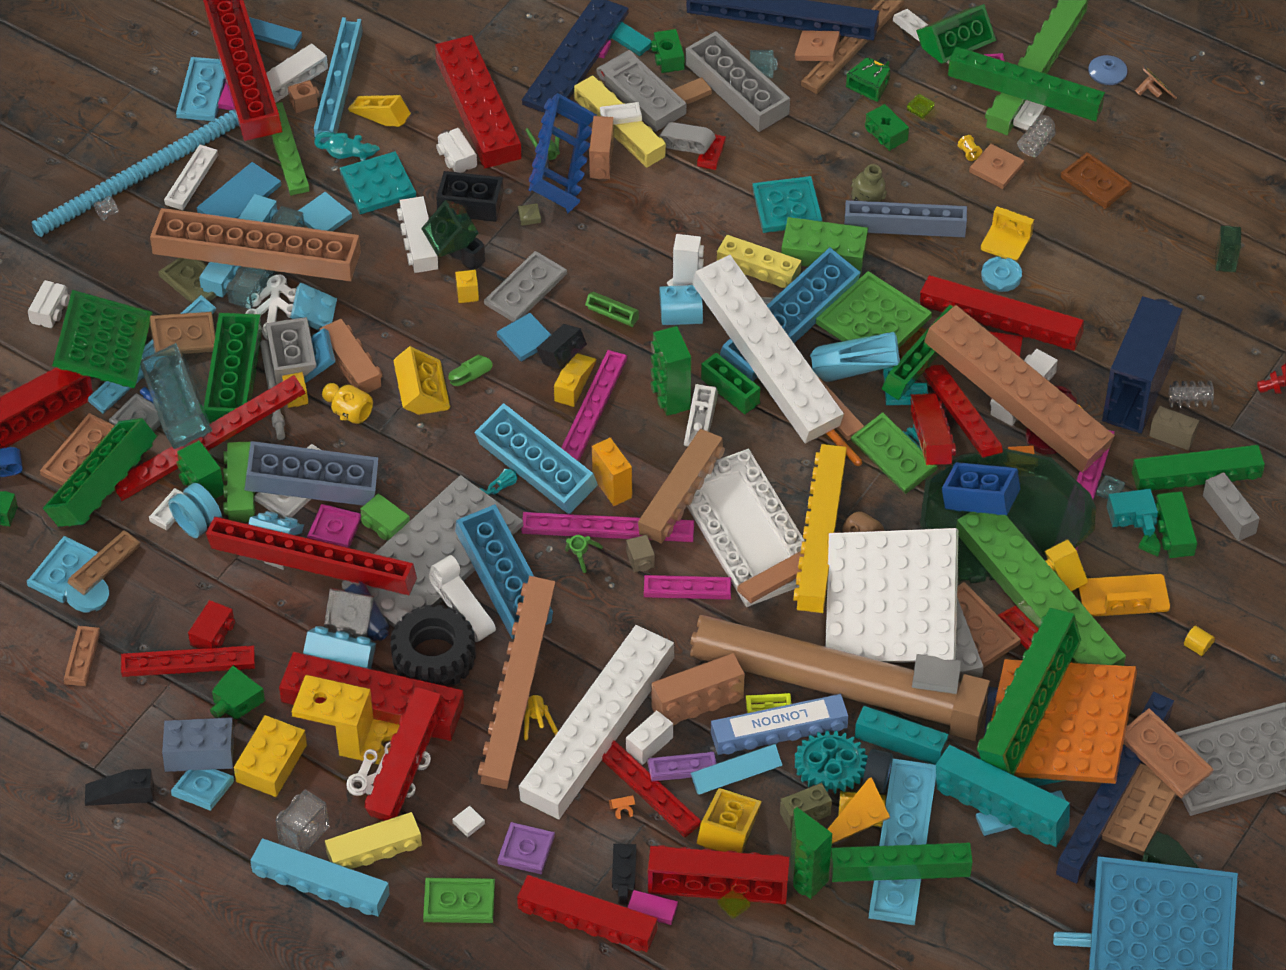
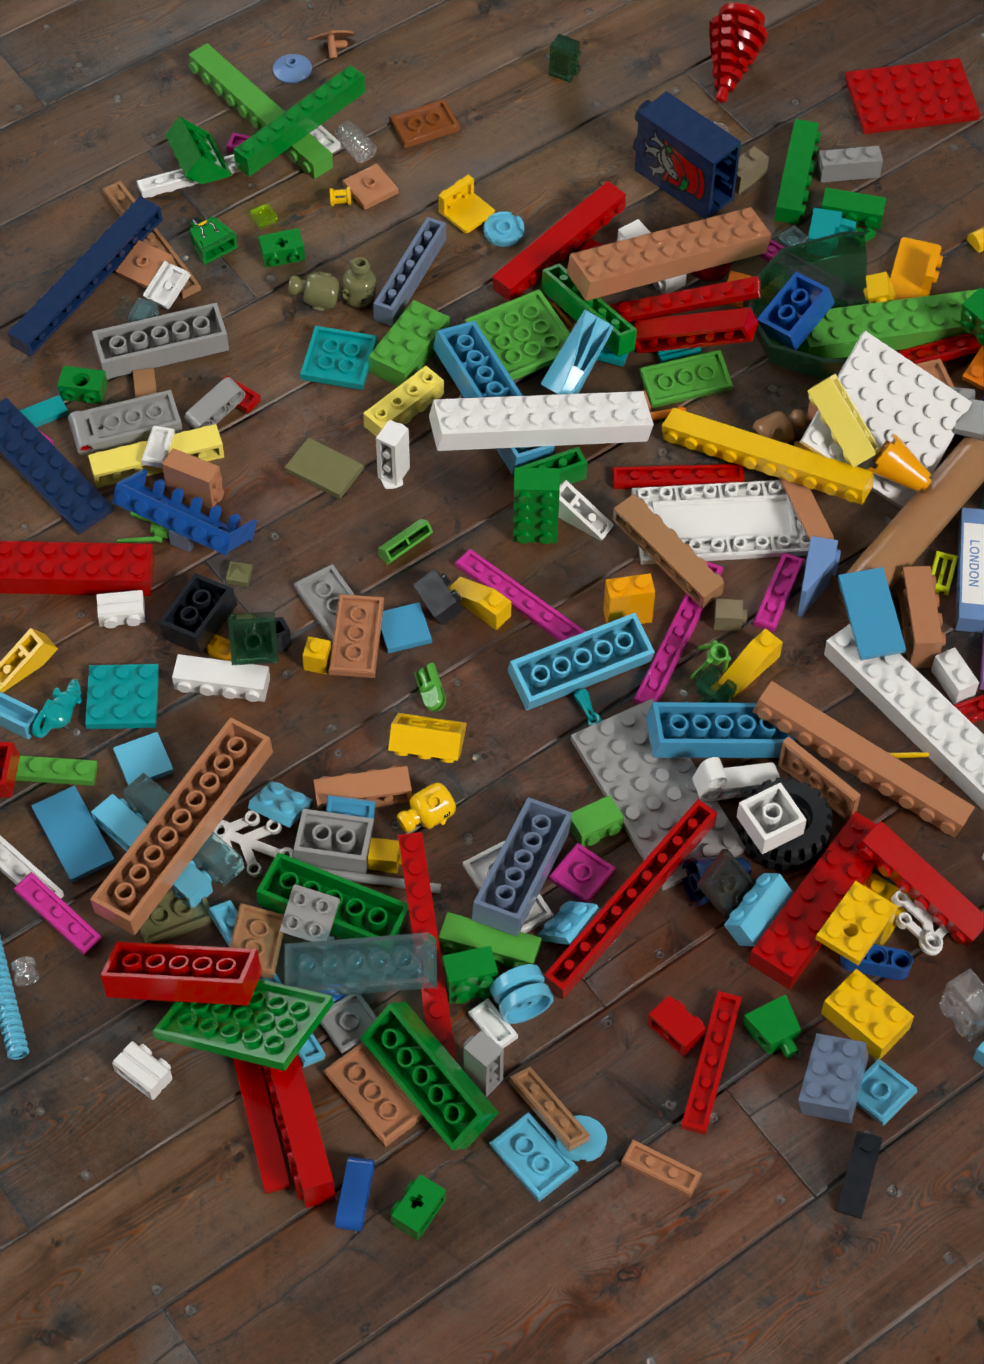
camera: 70 degrees left, 5 degrees up
(118, 499) = (483, 1062): none -> light grey brick
(127, 291) = (181, 973): none -> red brick
(164, 198) = (57, 913): none -> dark pink tile
(209, 353) = (309, 914): none -> light grey bracket
(330, 758) = (887, 966): none -> blue beam
(412, 616) = (771, 818): none -> white brick
(486, 658) = (806, 768): none -> nougat tile
(498, 305) = (356, 636): none -> nougat tile
(553, 560) = (712, 690): none -> clear green hips
(597, 584) = (753, 660): none -> yellow slope
(662, 230) = (324, 468): none -> olive tile
(669, 642) = (871, 613): none -> dark azure tile
(680, 305) = (425, 482): medium azure brick -> none
(706, 597) = (820, 566): none -> medium blue slope
(779, 476) = (675, 475): none -> red tile
(801, 66) = (166, 285): none -> white plate
(841, 615) = (900, 465): none -> light orange cone
(848, 162) = (319, 290): none -> olive piece
(854, 548) = (843, 420): none -> light yellow brick

